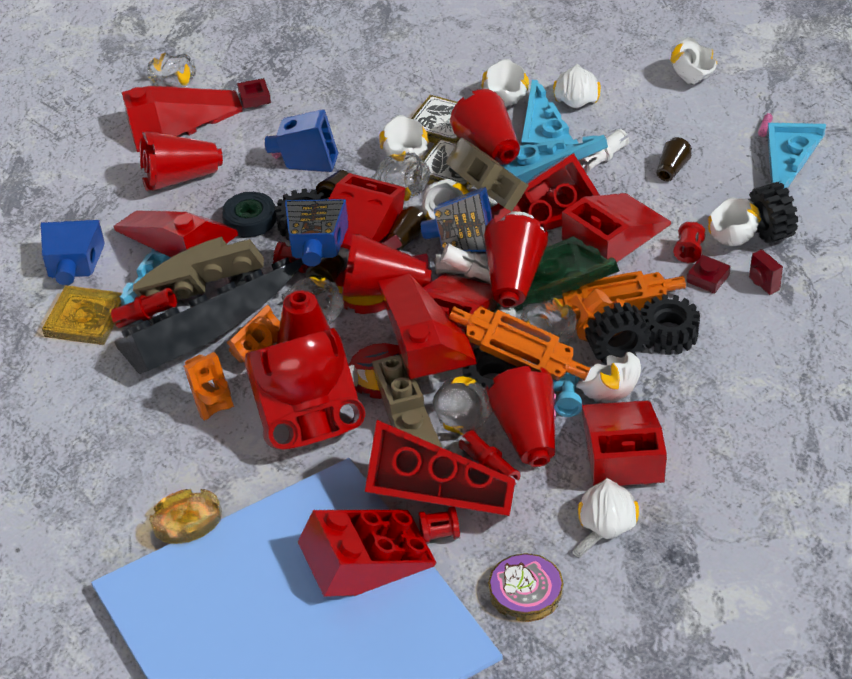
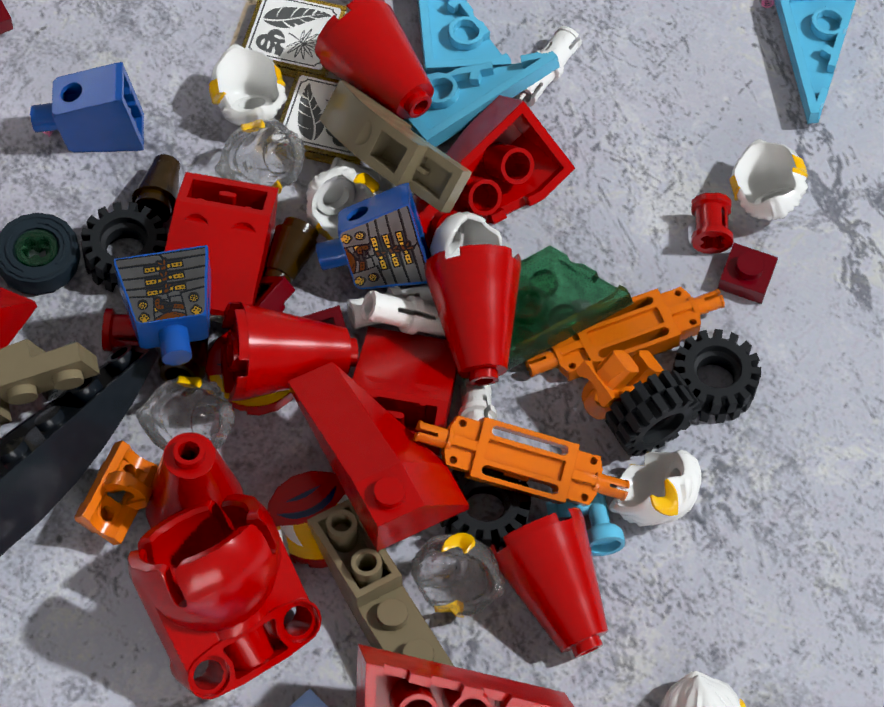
camera: 20 degrees left, 15 degrees up
(208, 397) = (66, 599): orange hips -> none
(486, 455) = (512, 654): red pin -> none
(552, 318) = (547, 402): clear hair -> none
(612, 224) = (596, 208): red slope -> none
(624, 443) = (700, 596): red slope -> none
(673, 158) = (654, 69): dark brown cone -> none
(765, 272) = (830, 264): dark red plate -> none
(775, 211) = (828, 159): black tyre -> none

